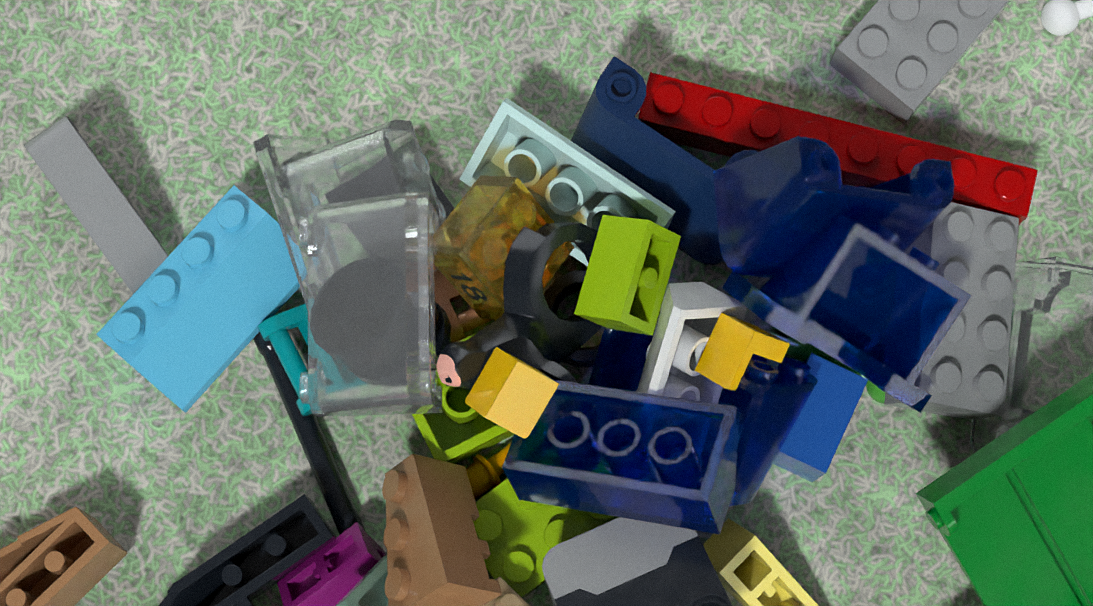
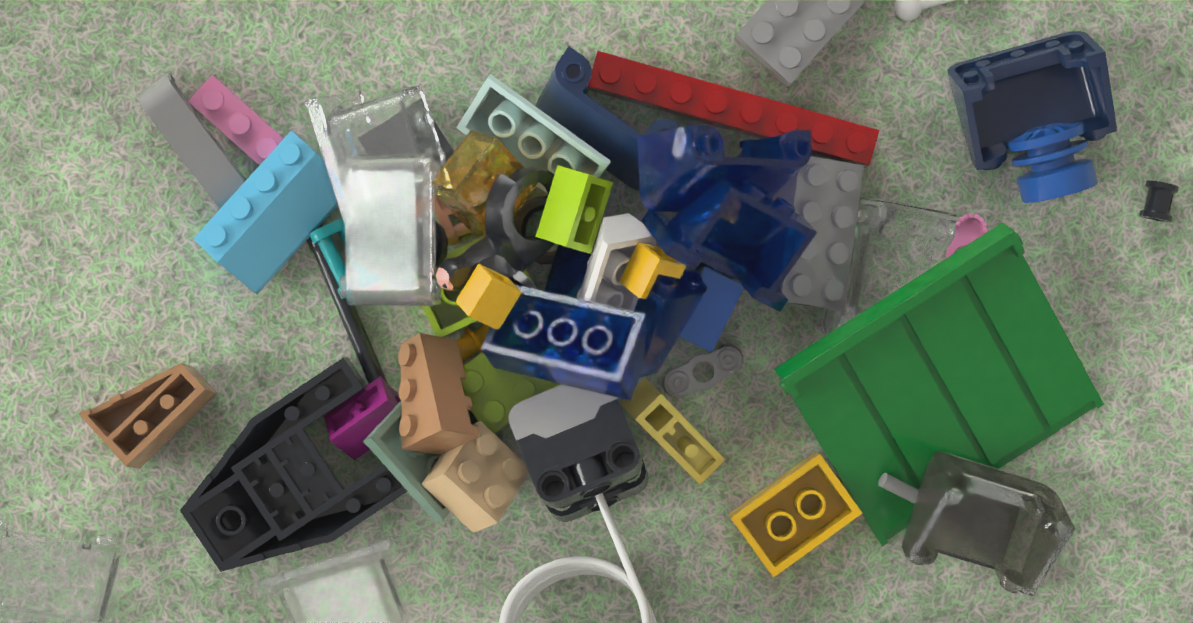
camera: 10 degrees right, 10 degrees up
(157, 177) = (235, 119): none -> bright pink plate
(778, 524) = (680, 380): none -> light grey piece

